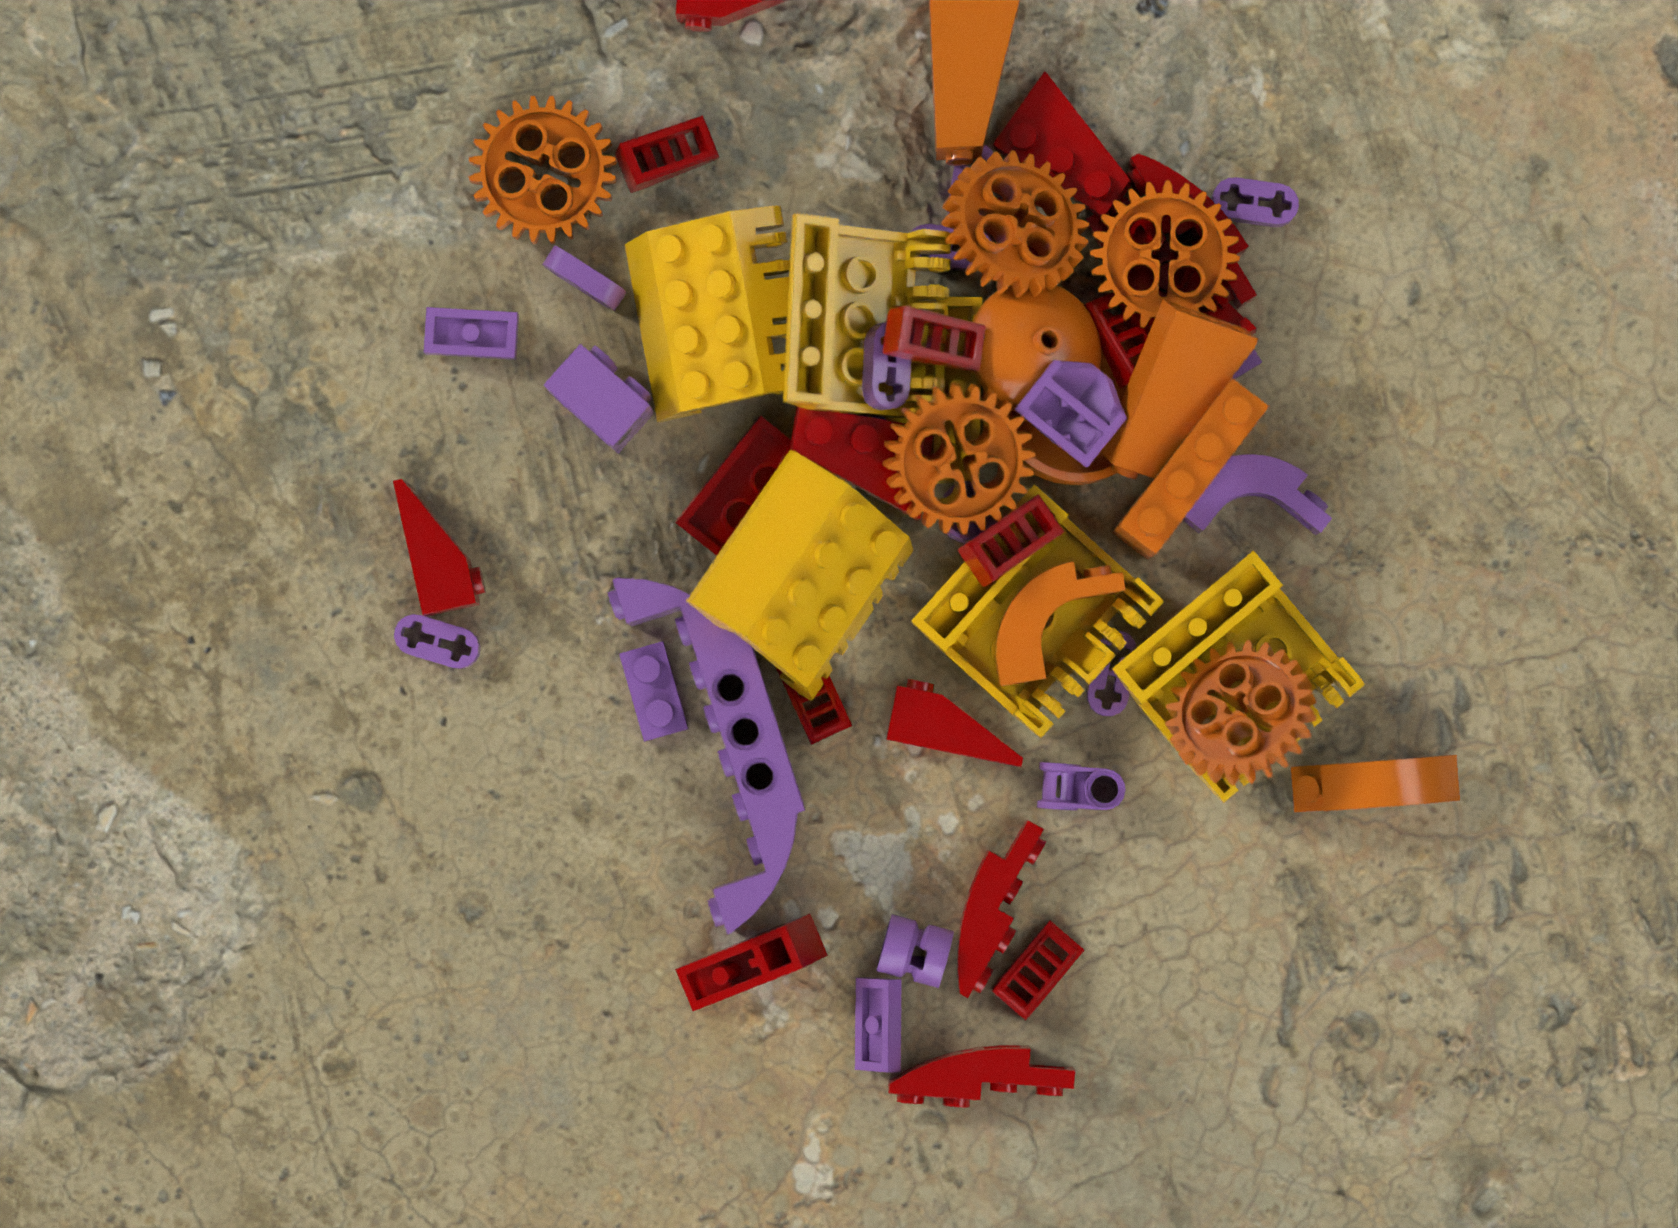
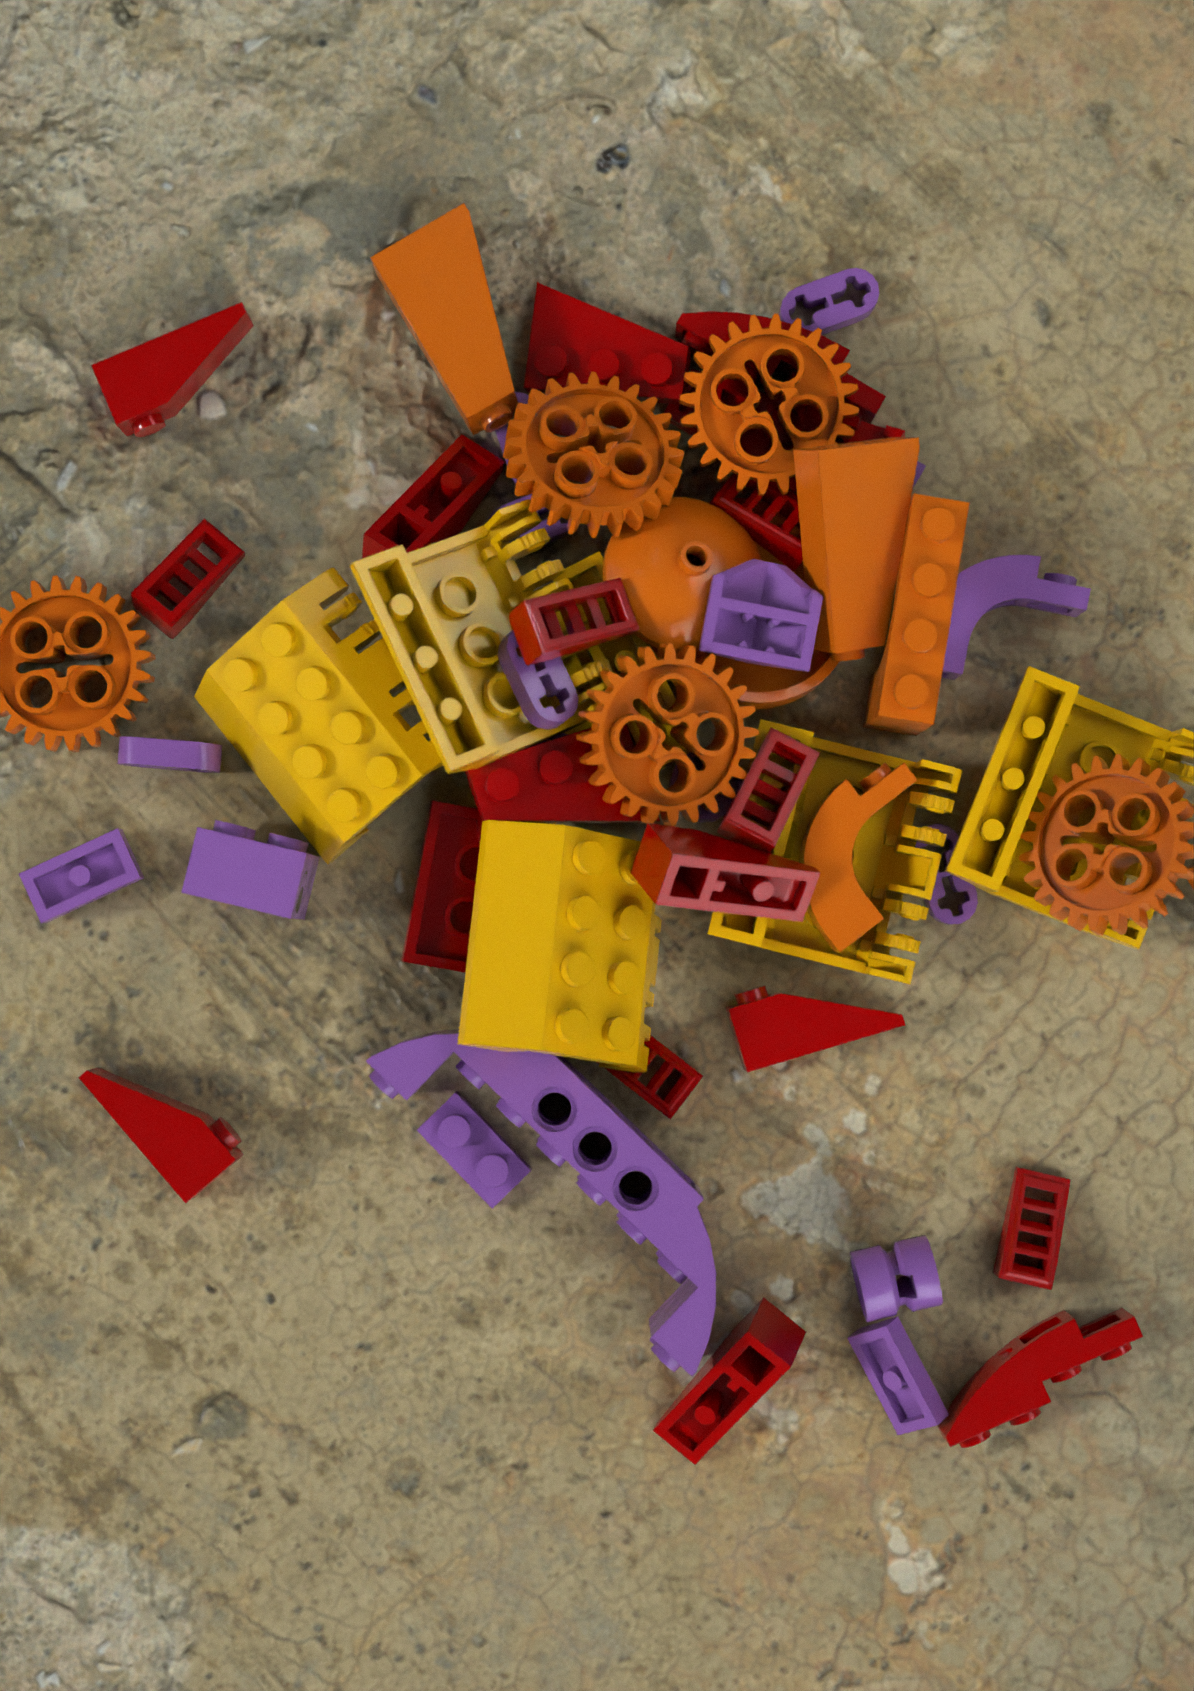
camera: 30 degrees left, 0 degrees up
(435, 652) = (221, 1231): medium lavender beam -> none
(882, 196) = (437, 501): none -> red slope
(943, 582) = (720, 875): none -> red slope
(982, 923) = (952, 1210): red slope -> none
(1075, 787) = (972, 1014): medium lavender piece -> none

